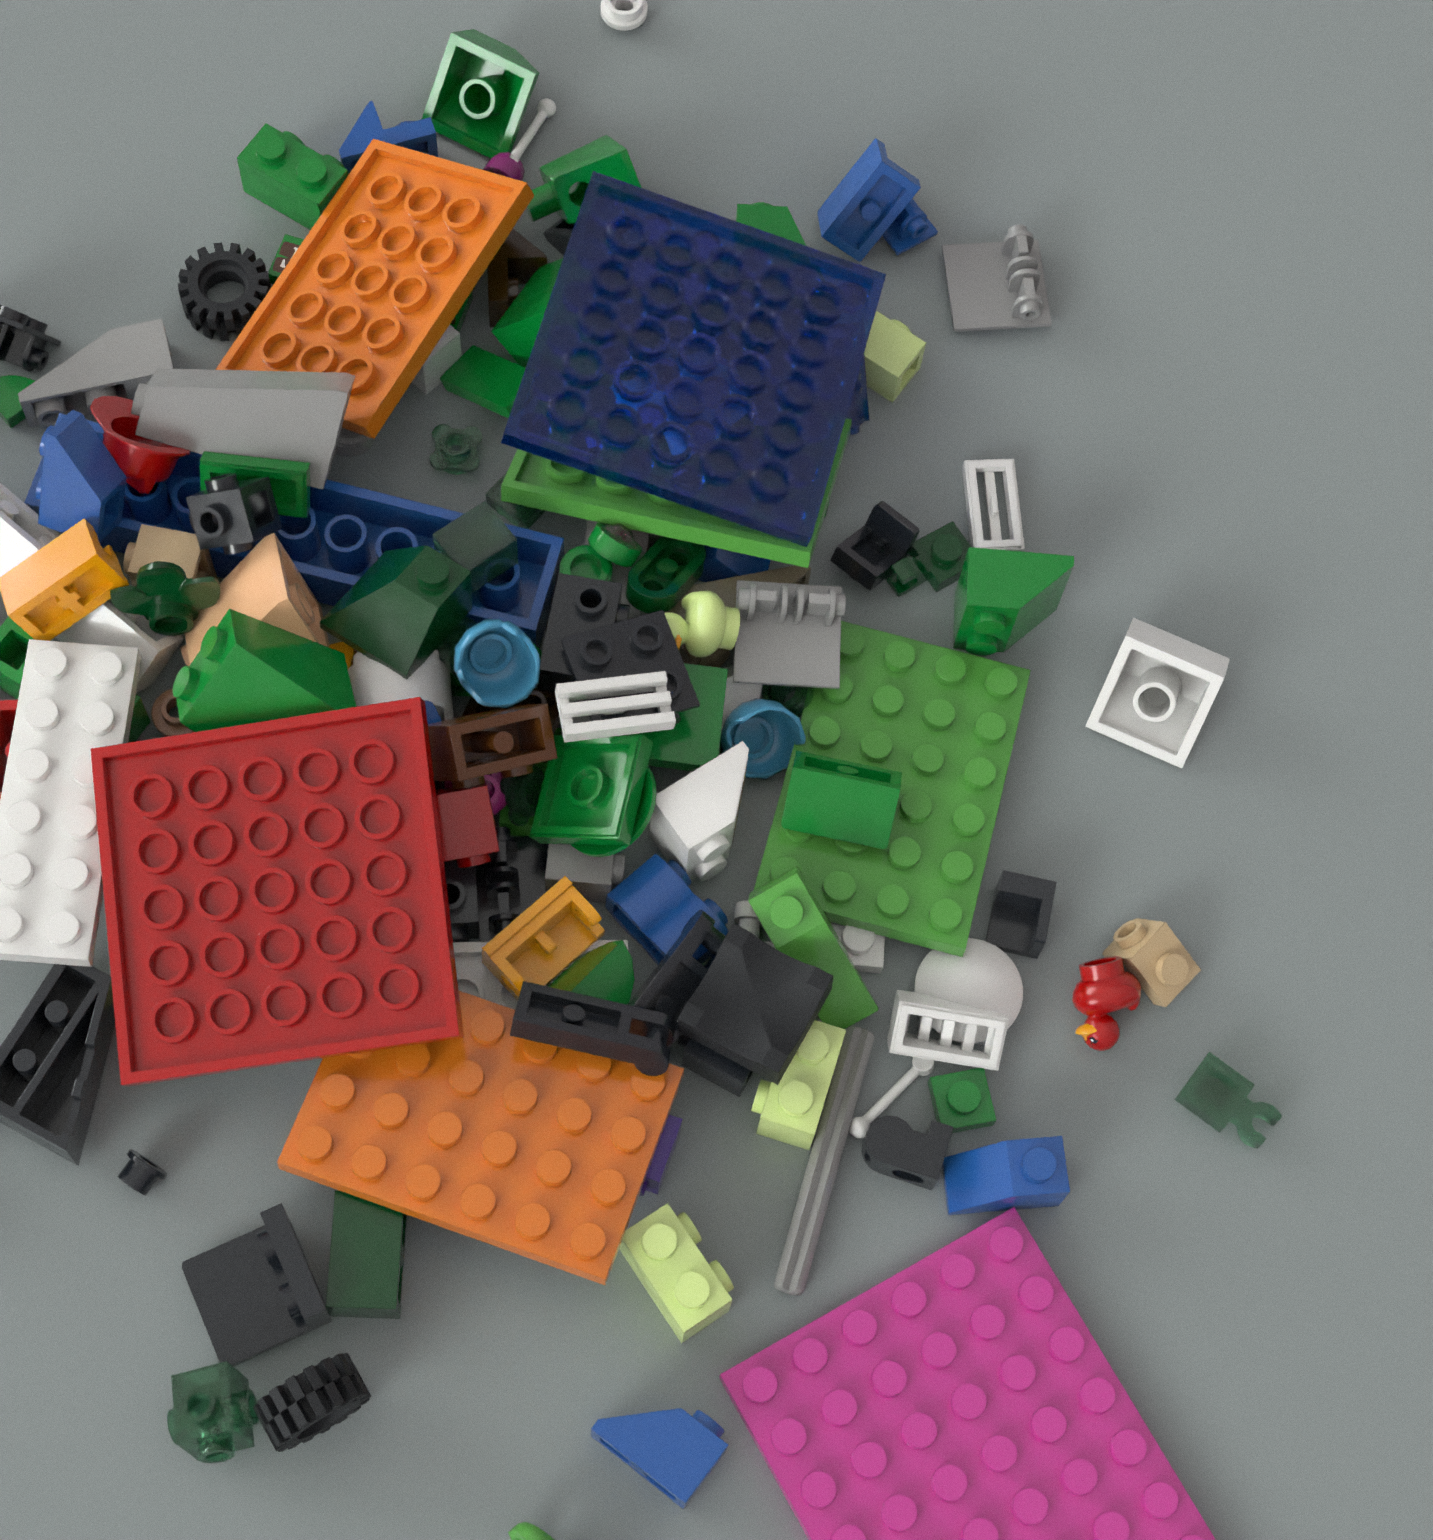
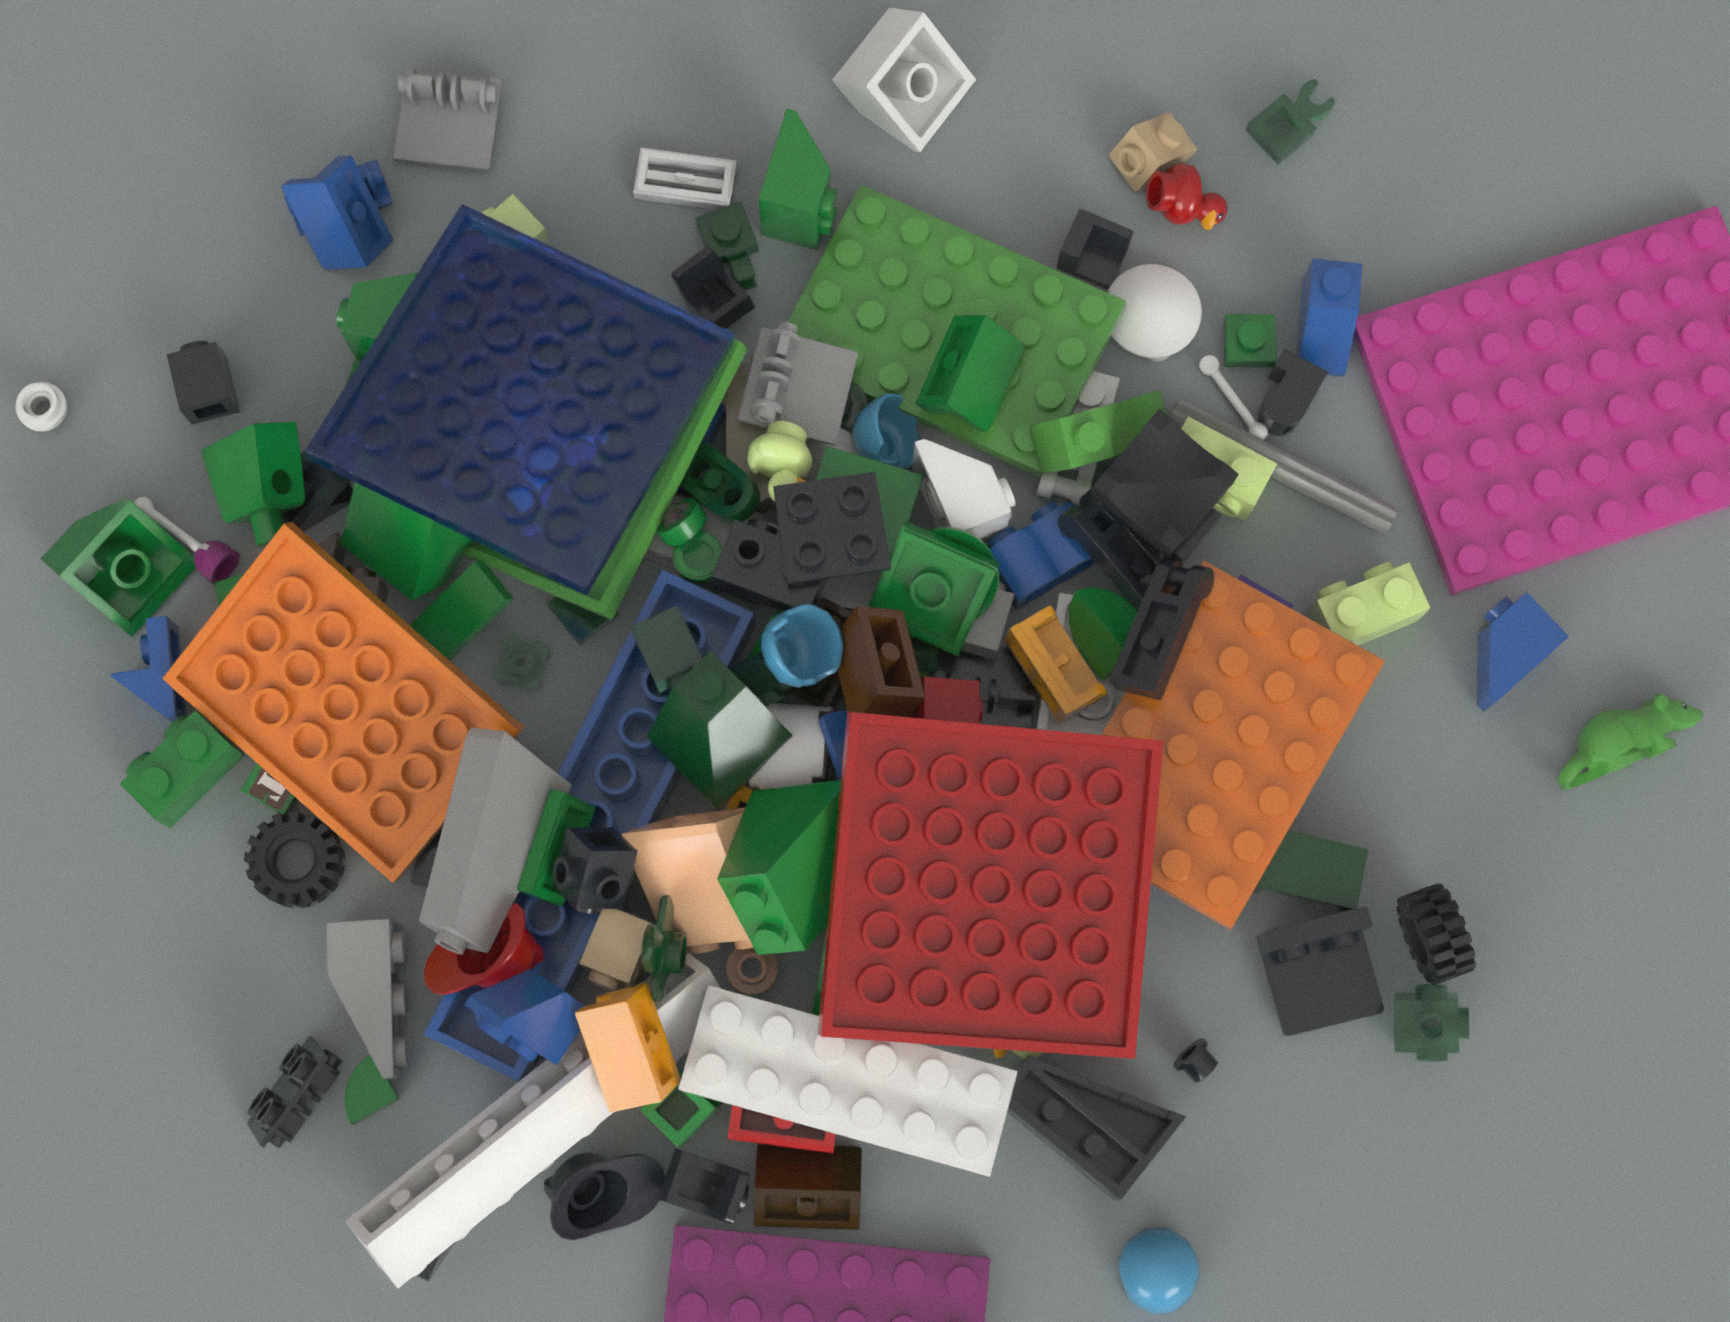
camera: 75 degrees left, 10 degrees up
(610, 687) = (875, 502): white tile -> none
(675, 127) = (202, 382): none -> black brick
(950, 1012) = (1170, 360): white slope -> none

